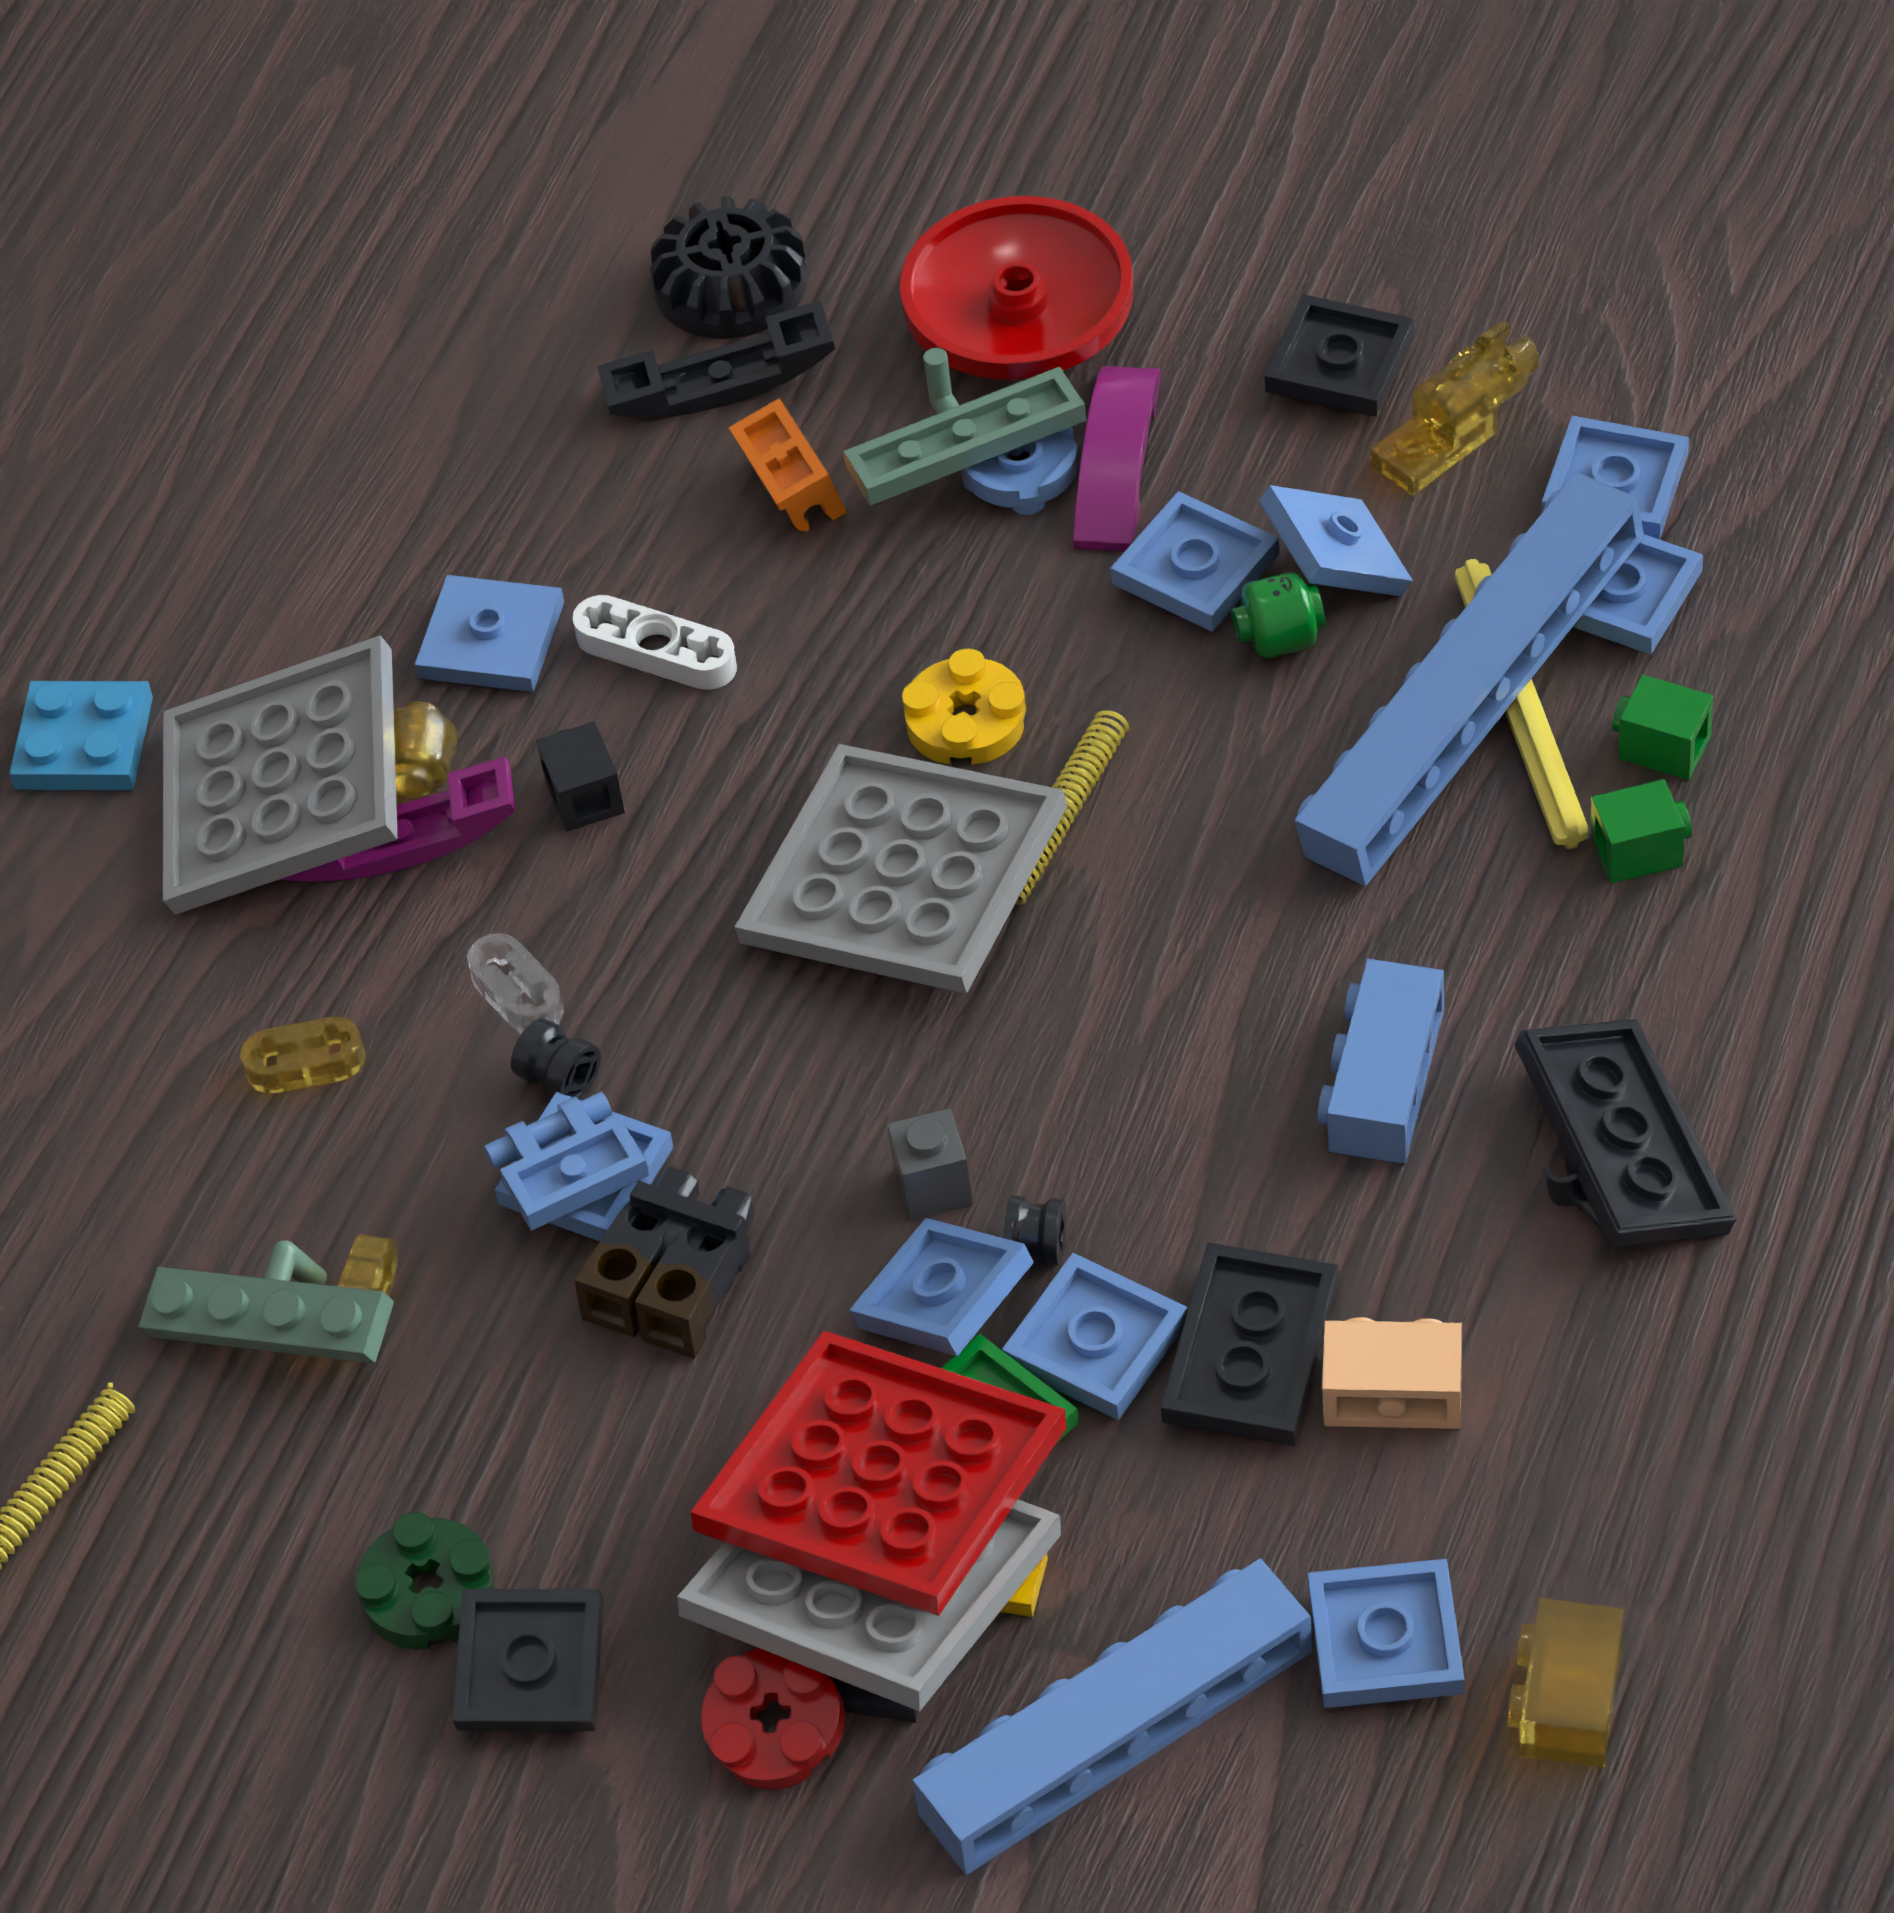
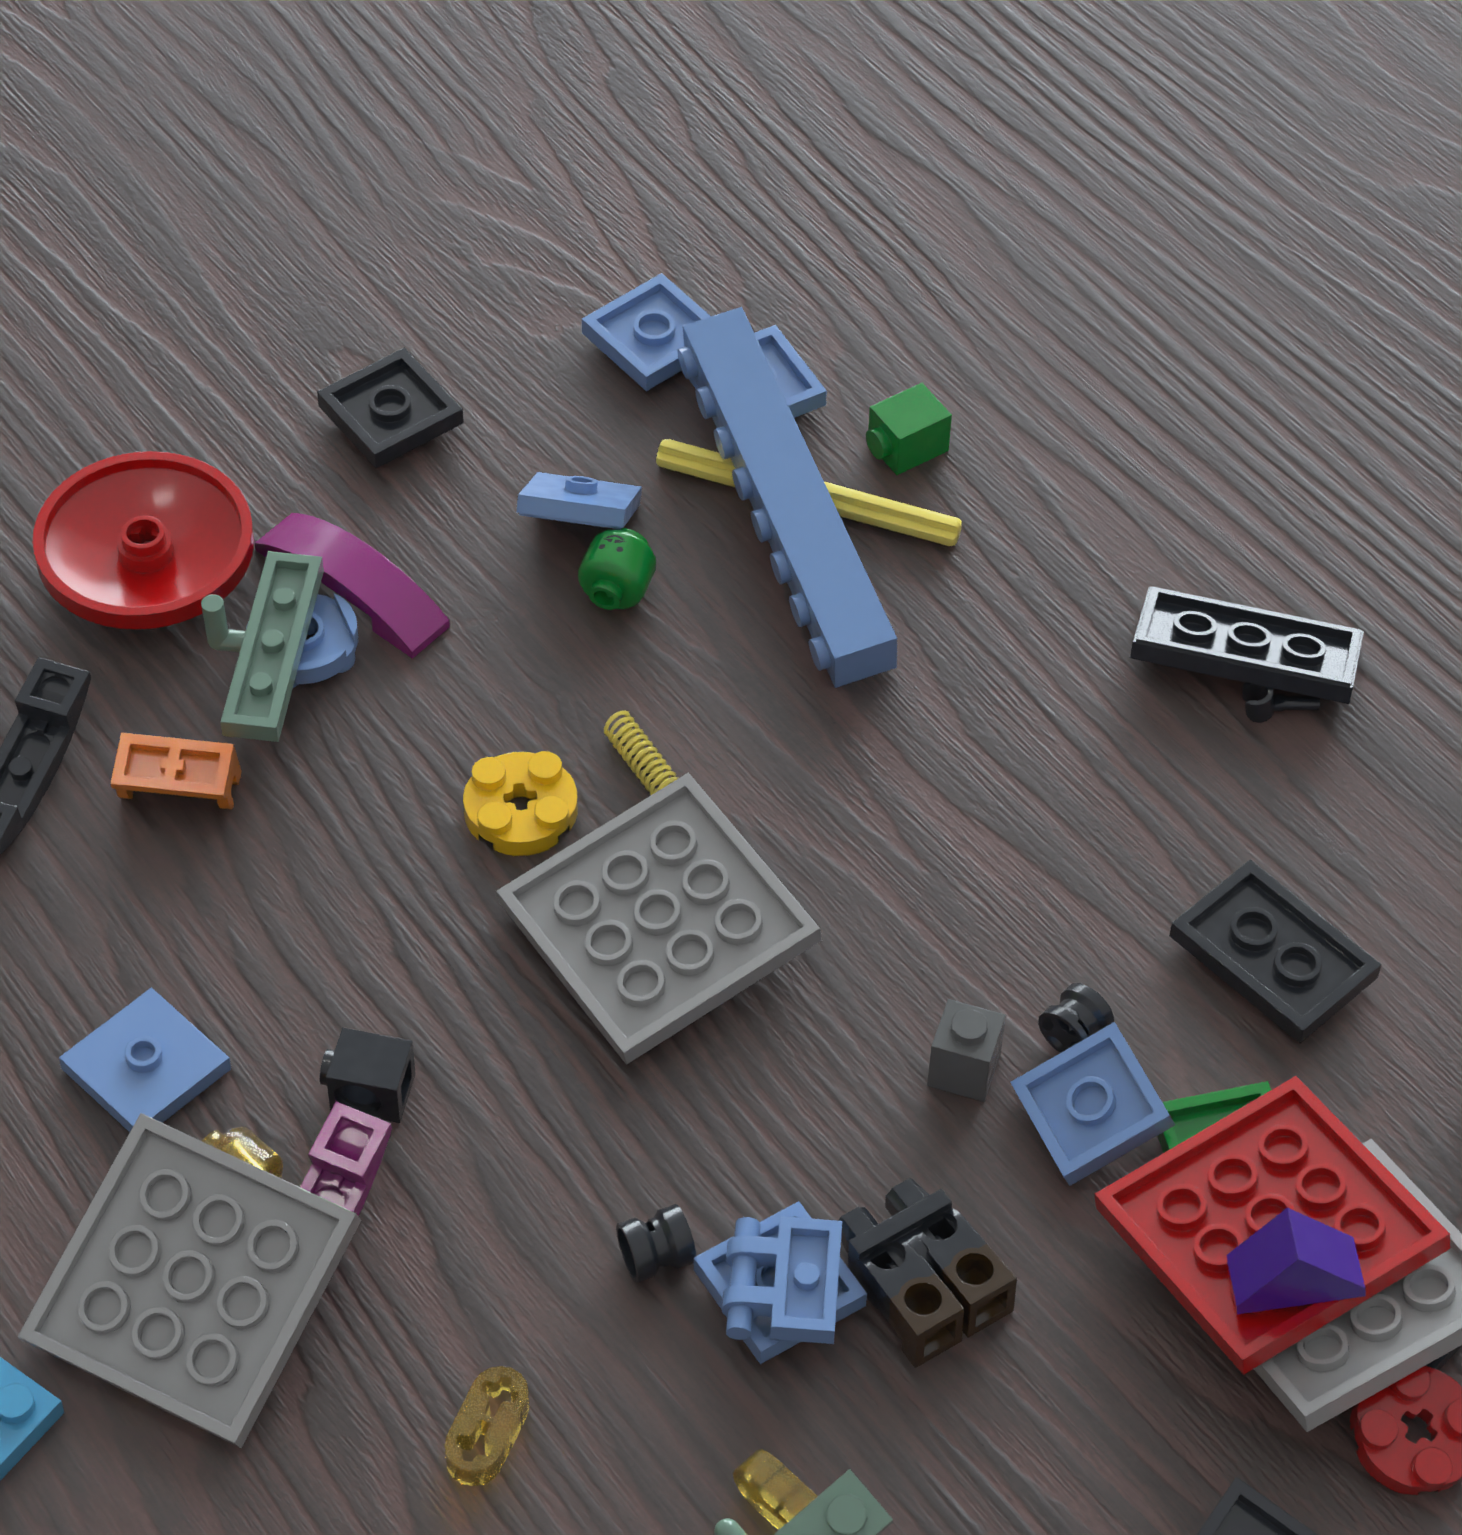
camera: 65 degrees left, 0 degrees up
(525, 976) = (540, 1235): clear beam -> none
(669, 662) = (255, 981): white beam -> none
(813, 1499) = (1294, 1265): none -> dark purple slope
(1096, 1335) = (1199, 1036): medium blue plate -> none
(1194, 561) = (509, 591): medium blue plate -> none
(1382, 1060) = (1082, 736): medium blue brick -> none
(1392, 1374) = (1367, 879): light nougat brick -> none
(1456, 409) = (512, 376): clear yellow plate -> none
(1639, 830) = (989, 492): green brick -> none

